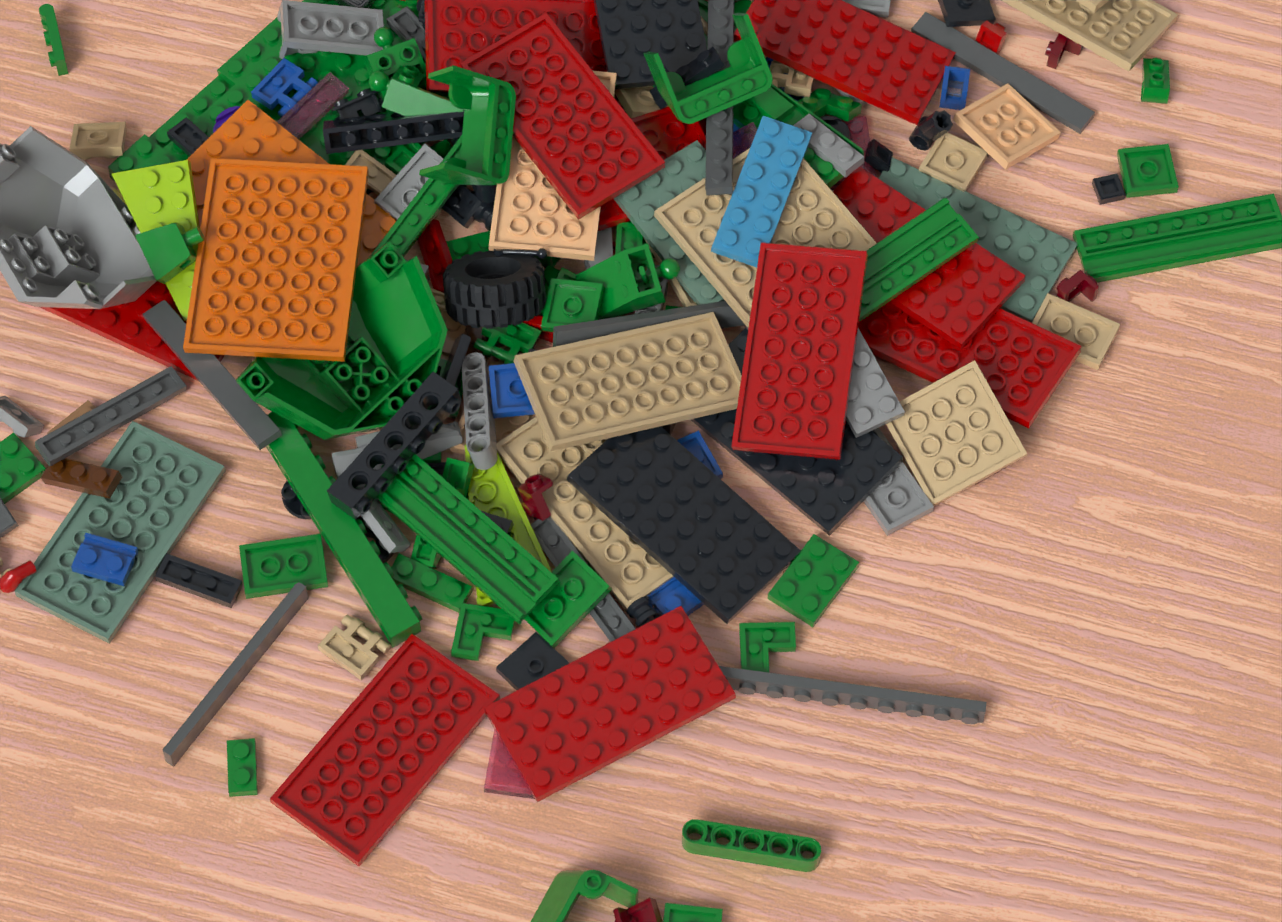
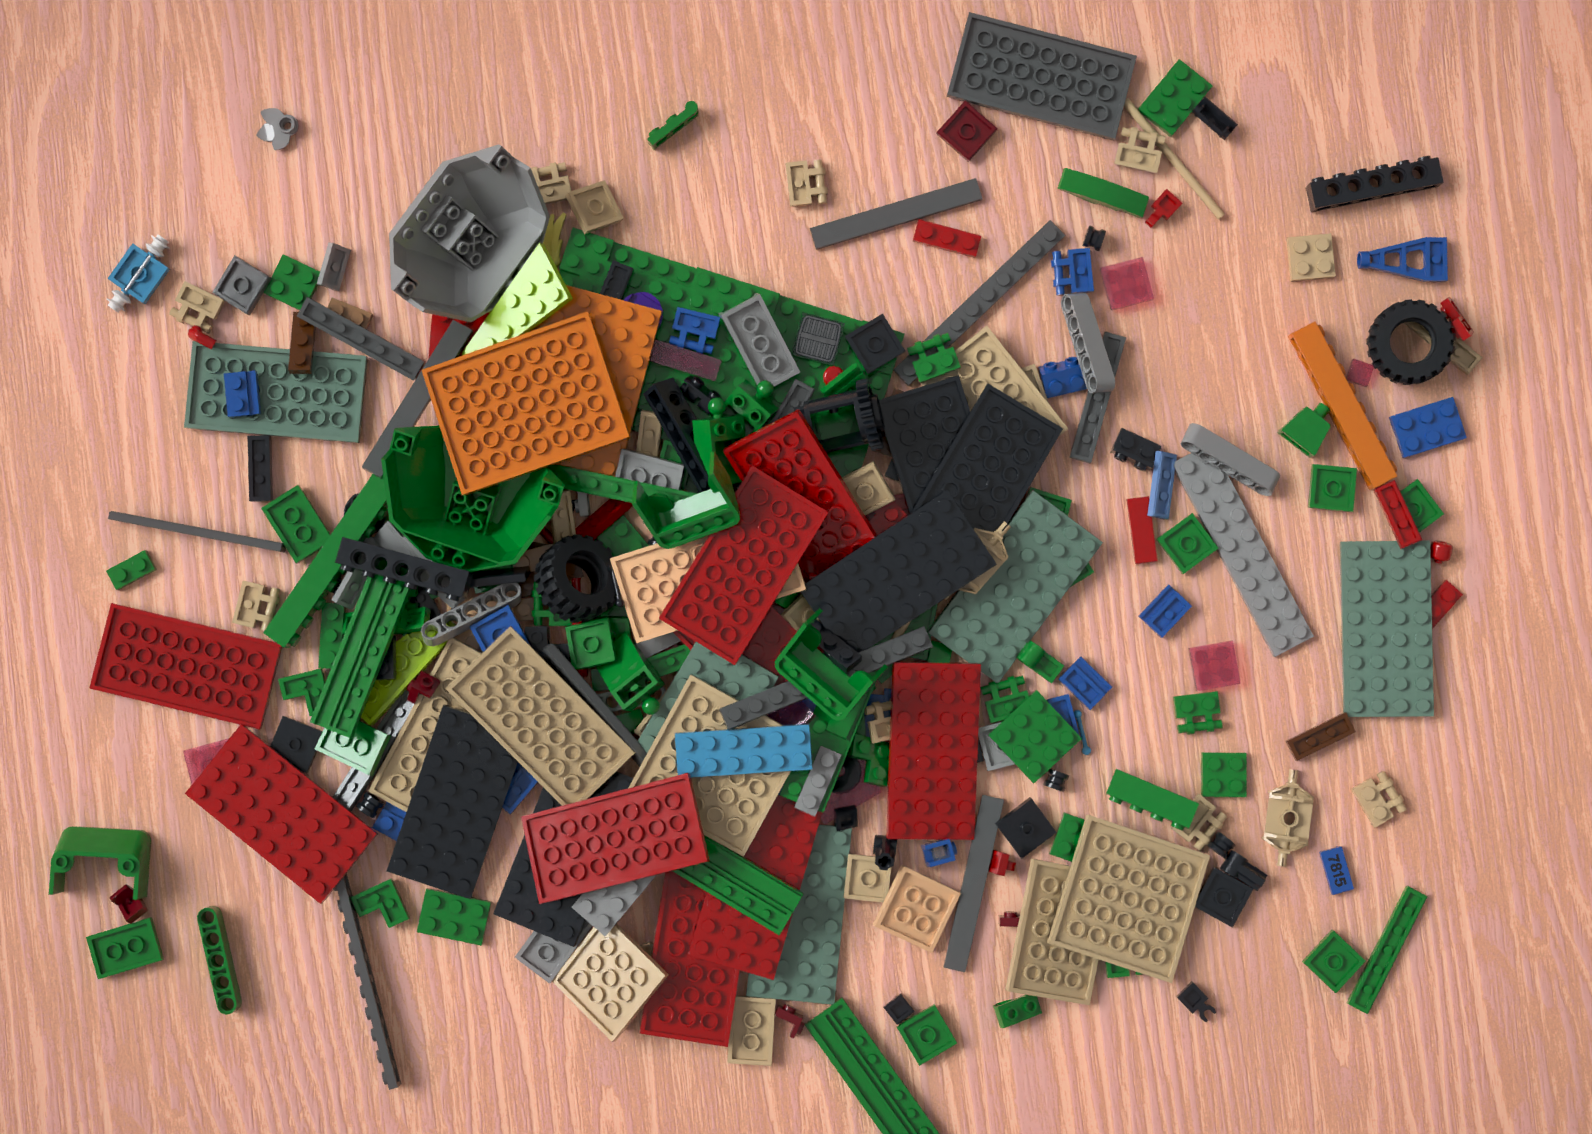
camera: 70 degrees right, 25 degrees up
(169, 249) = (495, 318): green torso -> none

